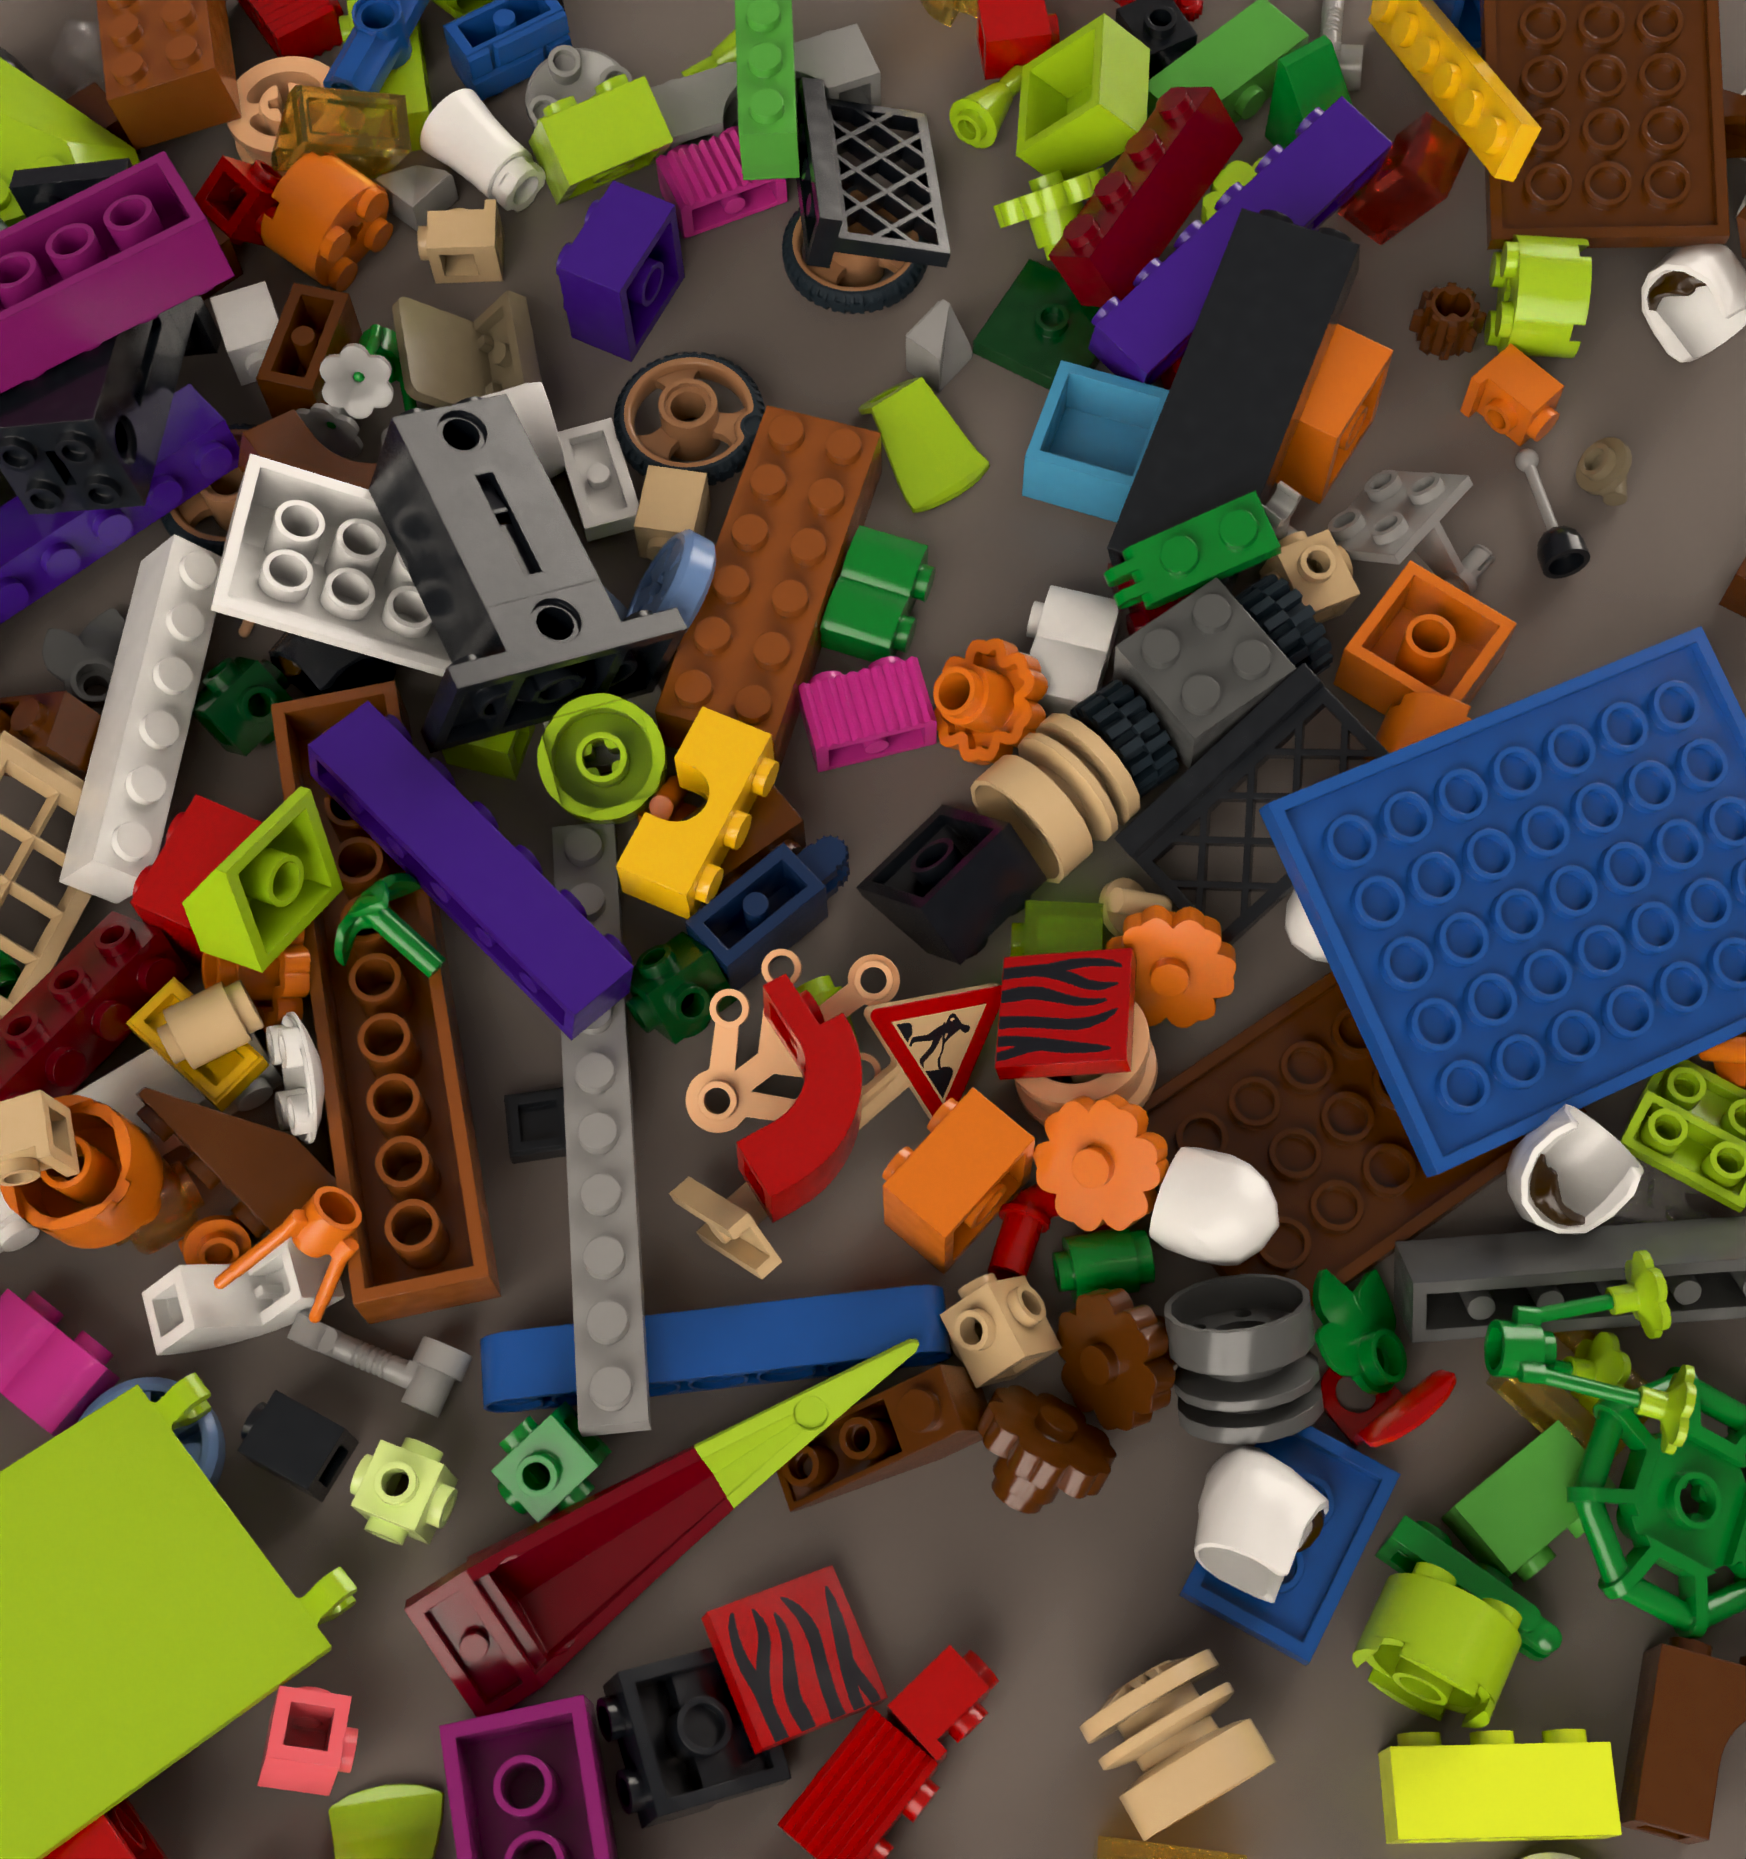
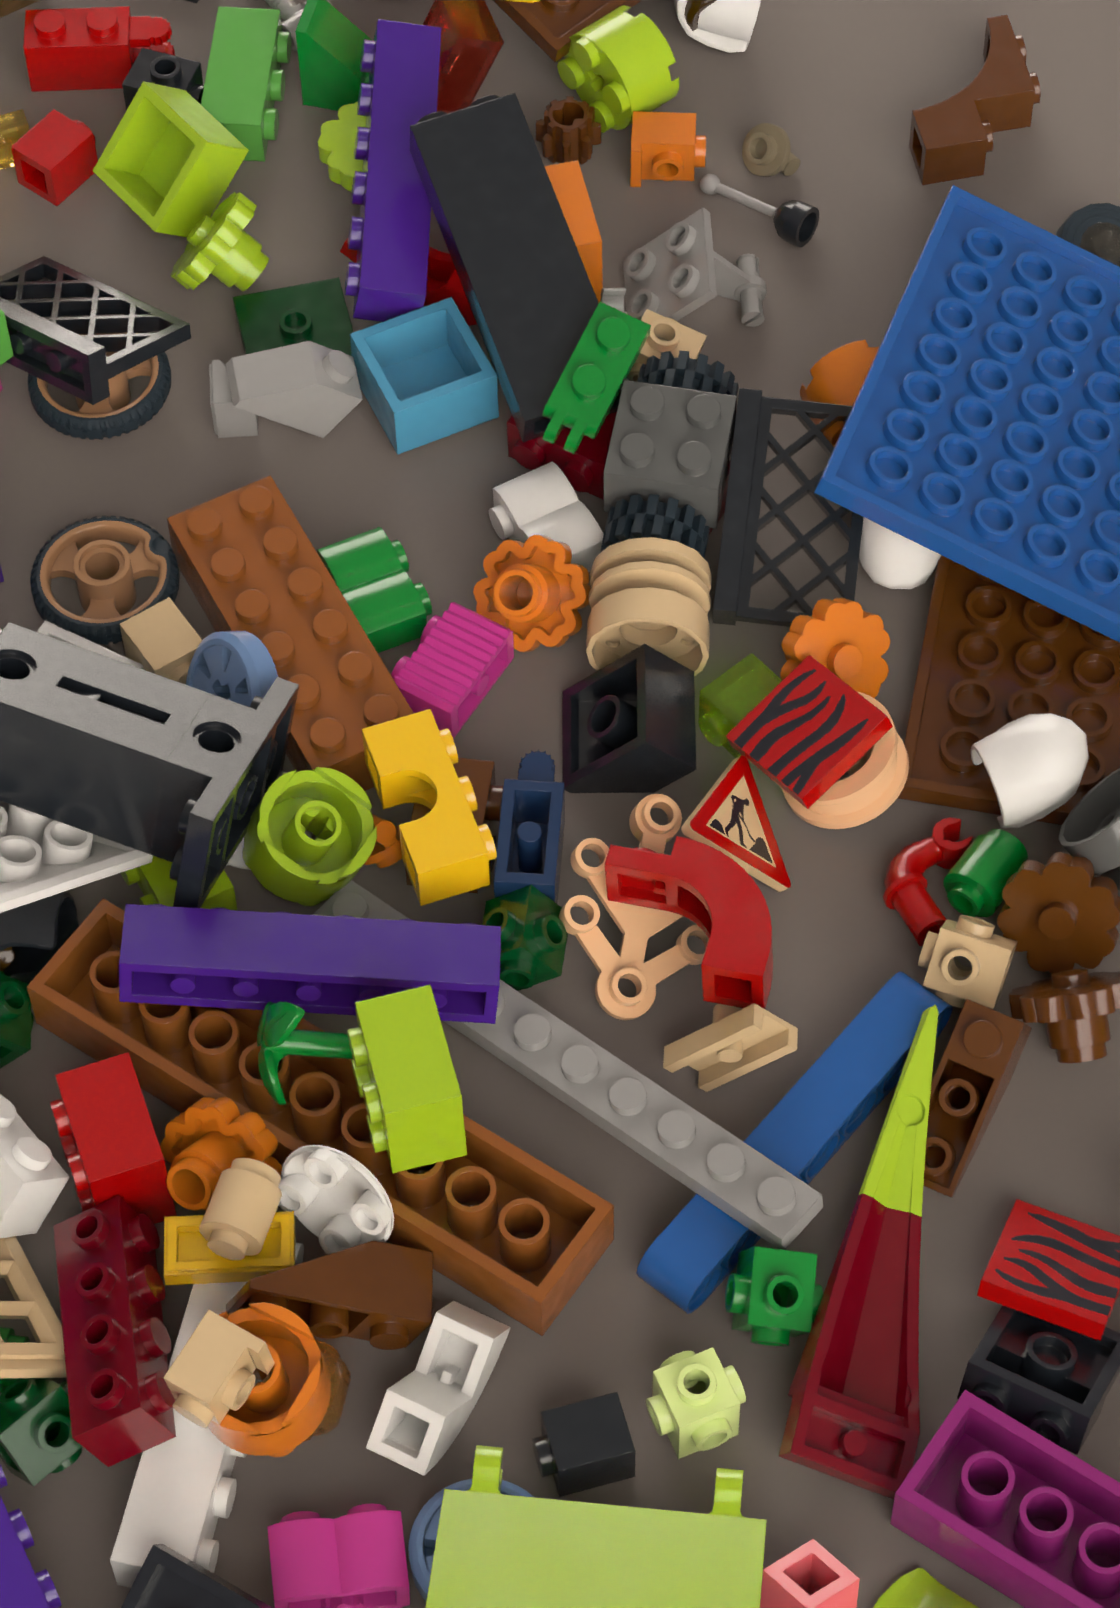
camera: 45 degrees left, 10 degrees down
(215, 1241) = (372, 1376): orange plate -> none
(266, 887) = (188, 1078): lime slope -> none
(317, 1230) = (467, 1268): orange plant -> none
(416, 1031) = (407, 1079): none -> lime piece
(425, 1377) = (624, 1329): light grey brick -> none
(536, 1125) = (517, 1111): black tile -> none
(924, 445) = (308, 477): lime piece -> none
(956, 1178) = (845, 893): orange brick -> none
(982, 113) = (89, 227): lime cone -> none
(983, 371) = (296, 386): none -> light grey slope
(1101, 1162) = (930, 799): orange plant -> none
(1125, 898) = (764, 645): tan plate -> none
(1146, 194) = (290, 189): dark red brick -> none
(1423, 641) = (779, 333): orange brick -> none

